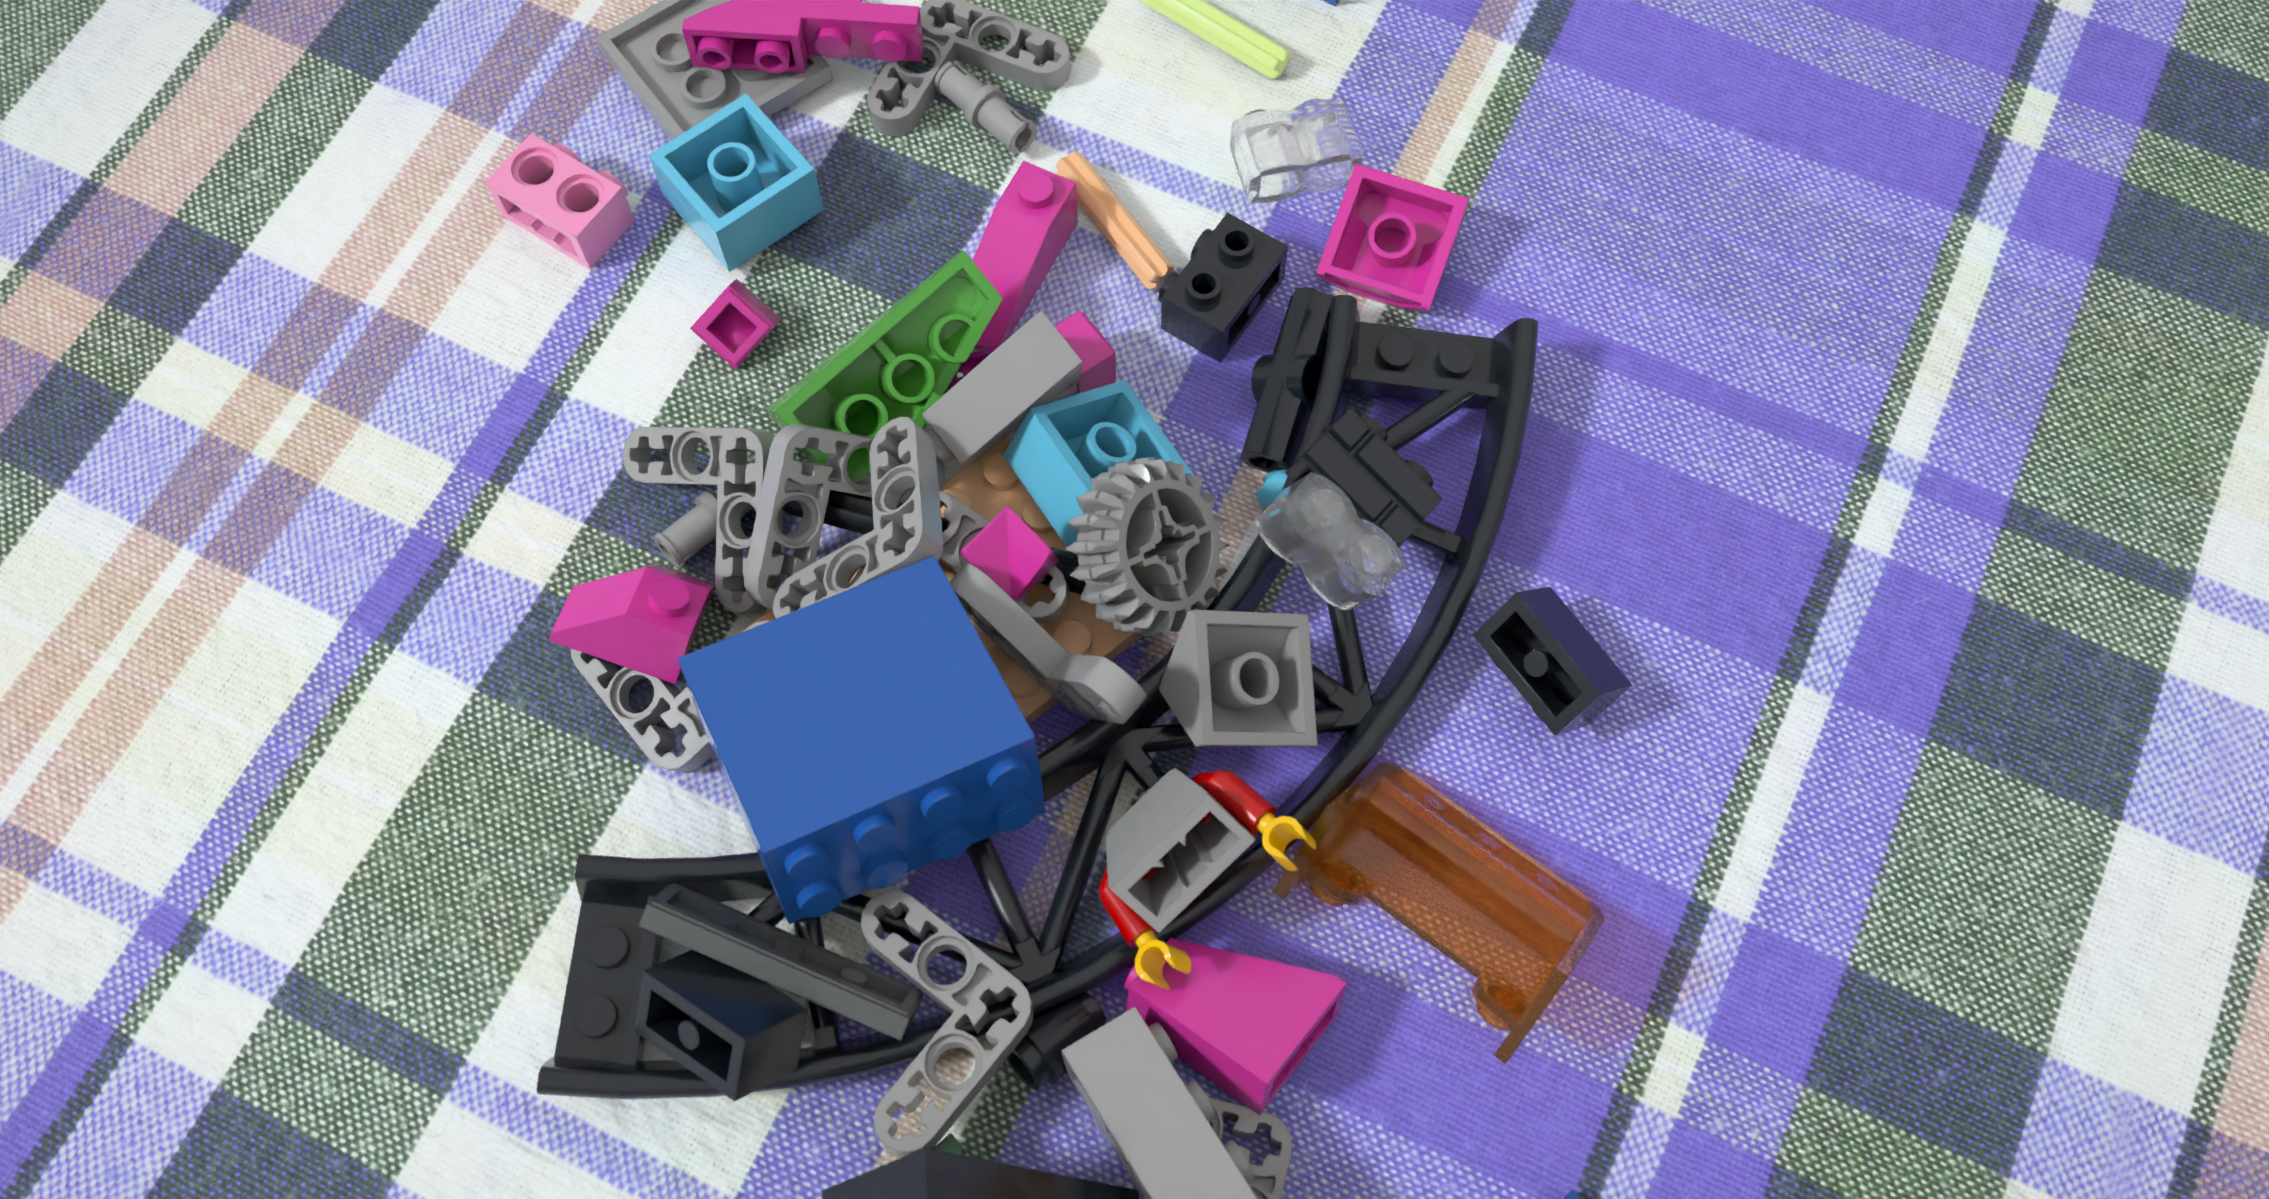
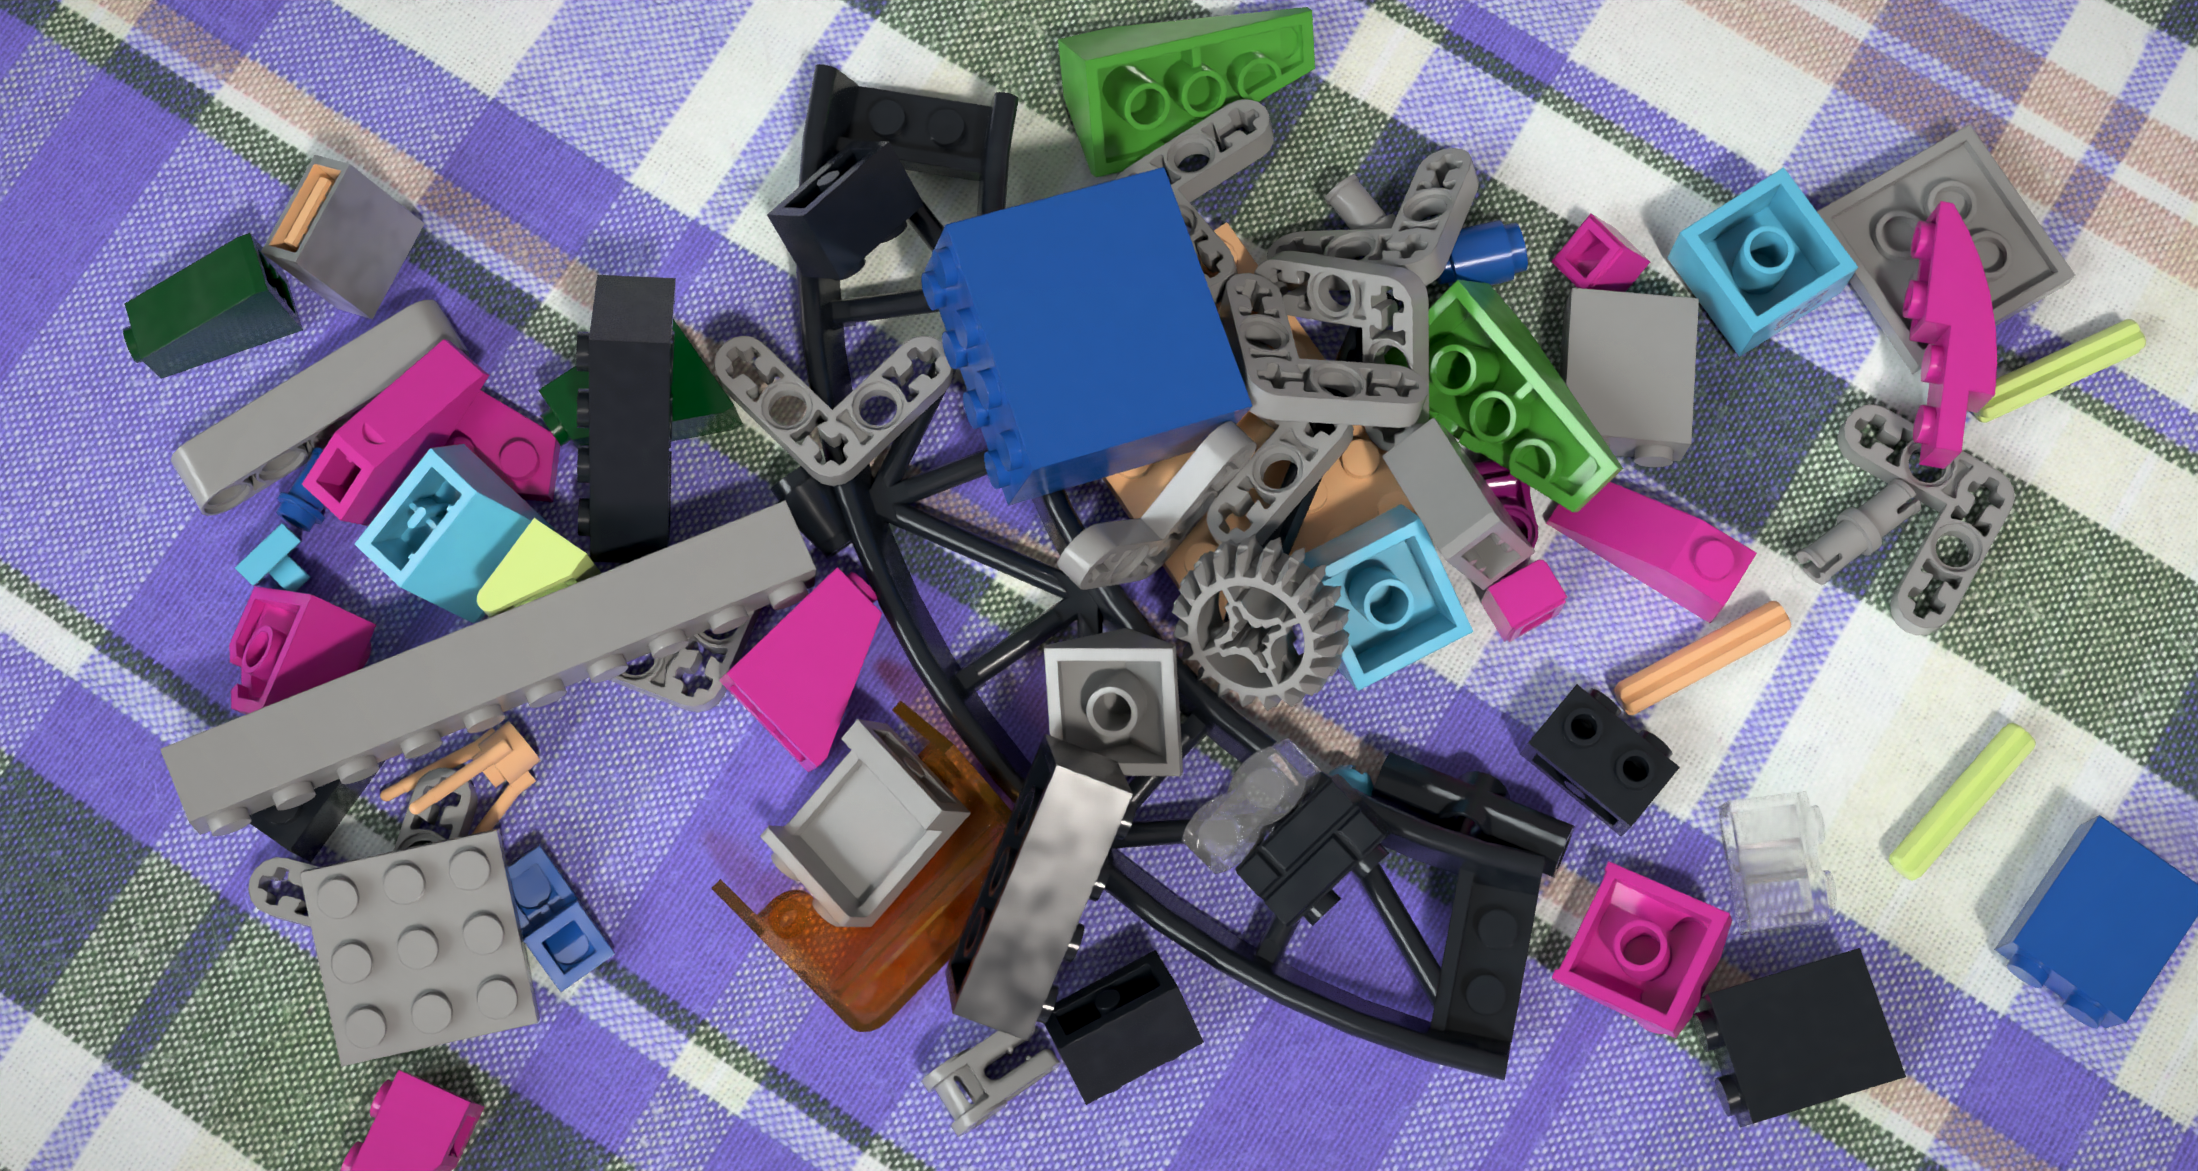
camera: 100 degrees right, 10 degrees up
(546, 738) = (1155, 80): none -> bright green wedge
(561, 200) = (1754, 86): bright pink brick -> none
(636, 619) = (1265, 157): dark pink slope -> none
(733, 403) = (1486, 254): none -> blue brick
(782, 959) = (895, 266): dark grey tile -> none
(841, 280) = (1633, 369): none -> light grey brick
(1010, 554) = (1262, 487): dark pink slope -> none
(1174, 848) = (947, 612): light grey torso -> none
(1401, 927) = (866, 828): none -> light grey panel
(1445, 120) = (1797, 1038): none -> black brick
(1446, 727) = (1039, 888): none -> brick
(1624, 807) = (987, 1094): none -> light grey piece

